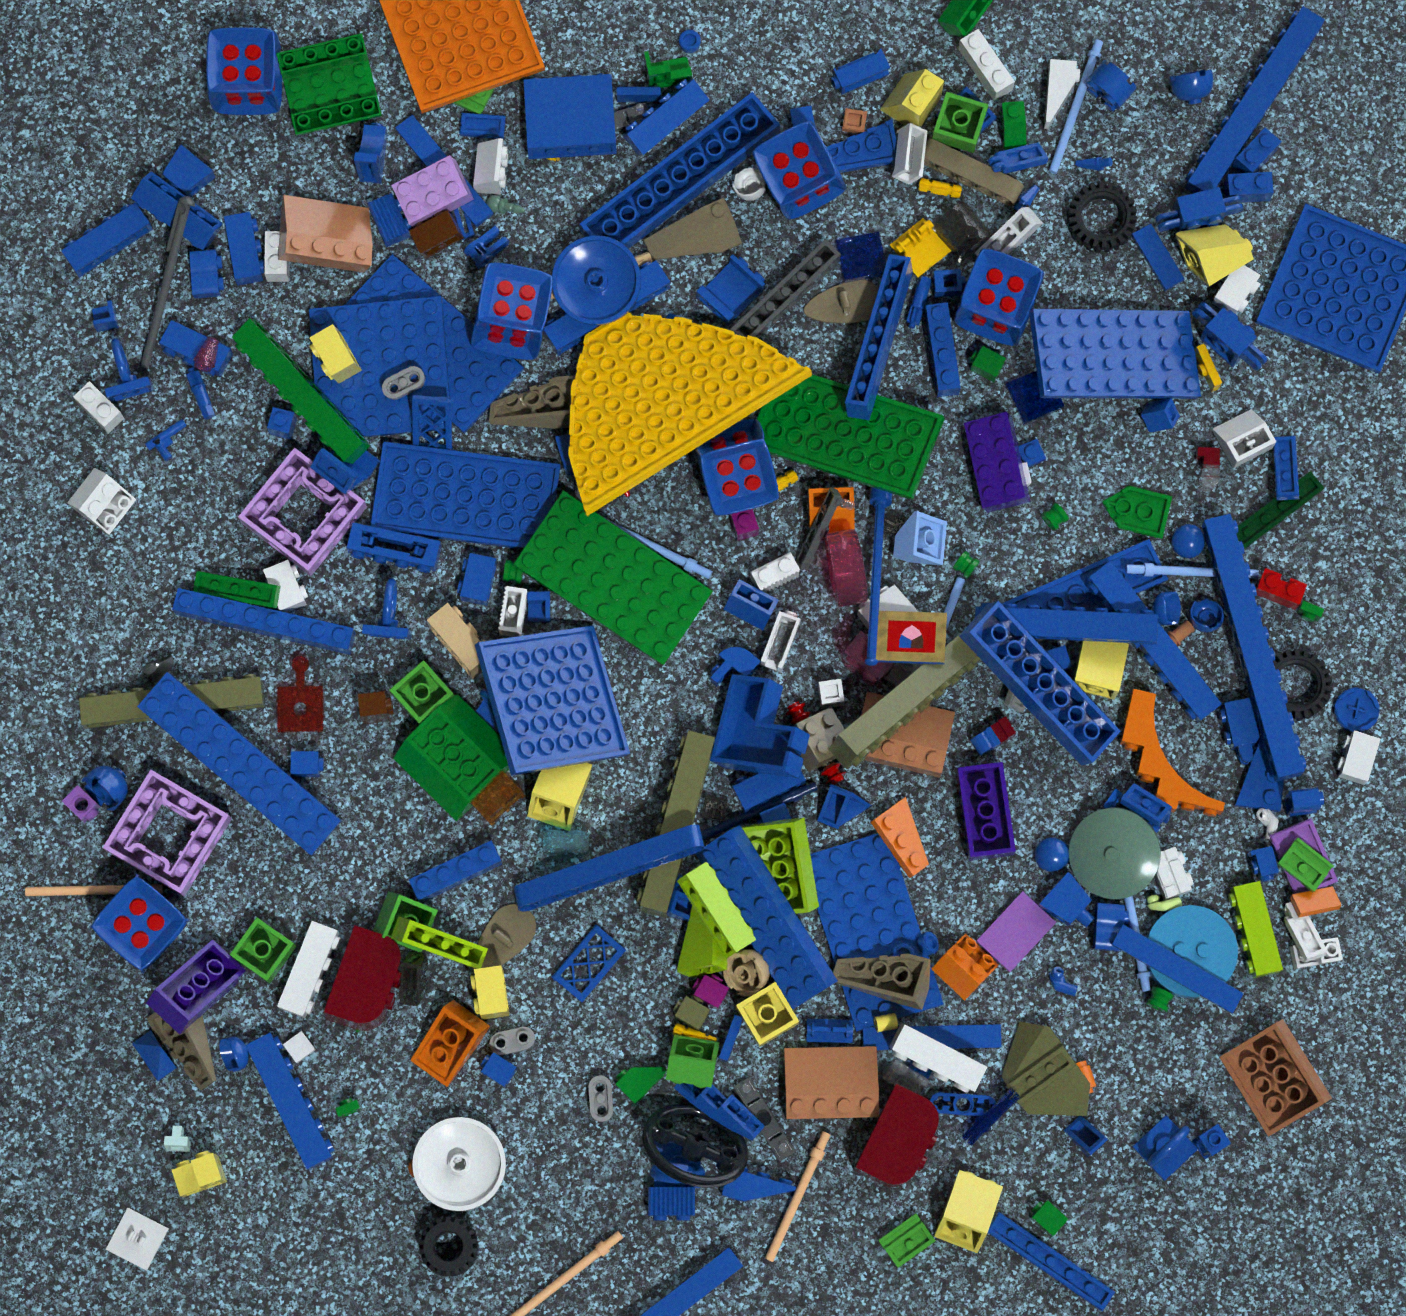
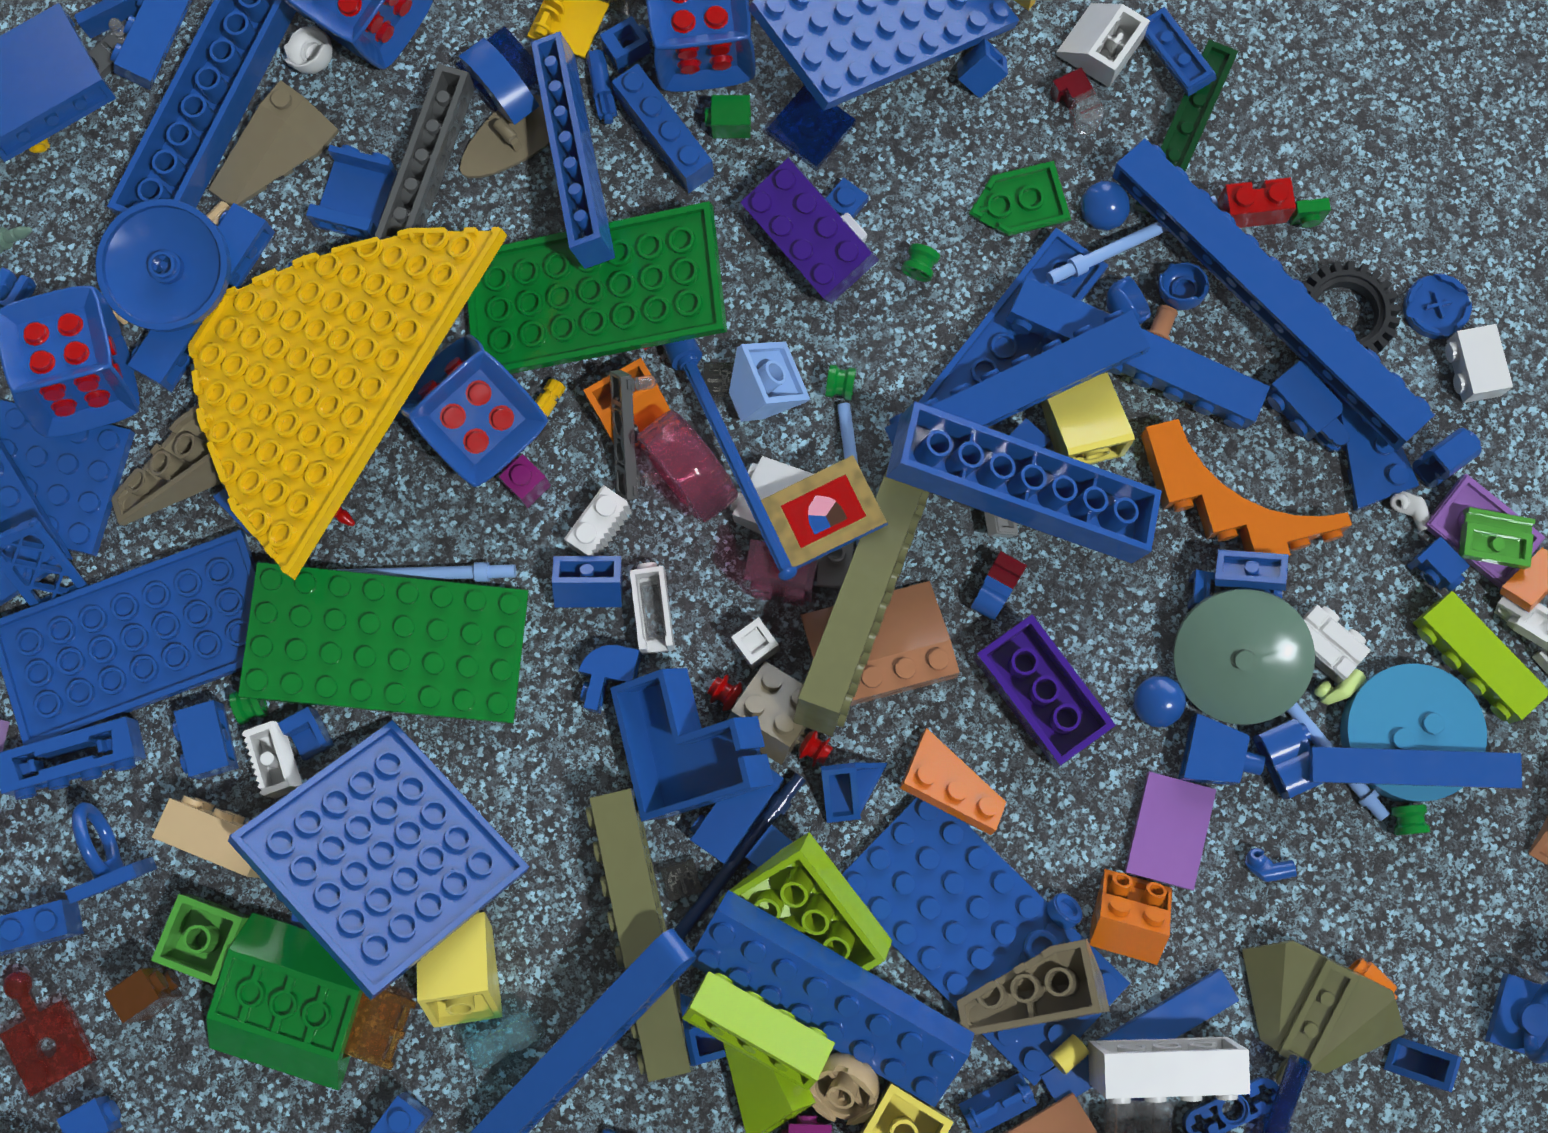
camera: 20 degrees left, 0 degrees up
(857, 267) = (500, 81): none -> blue brick

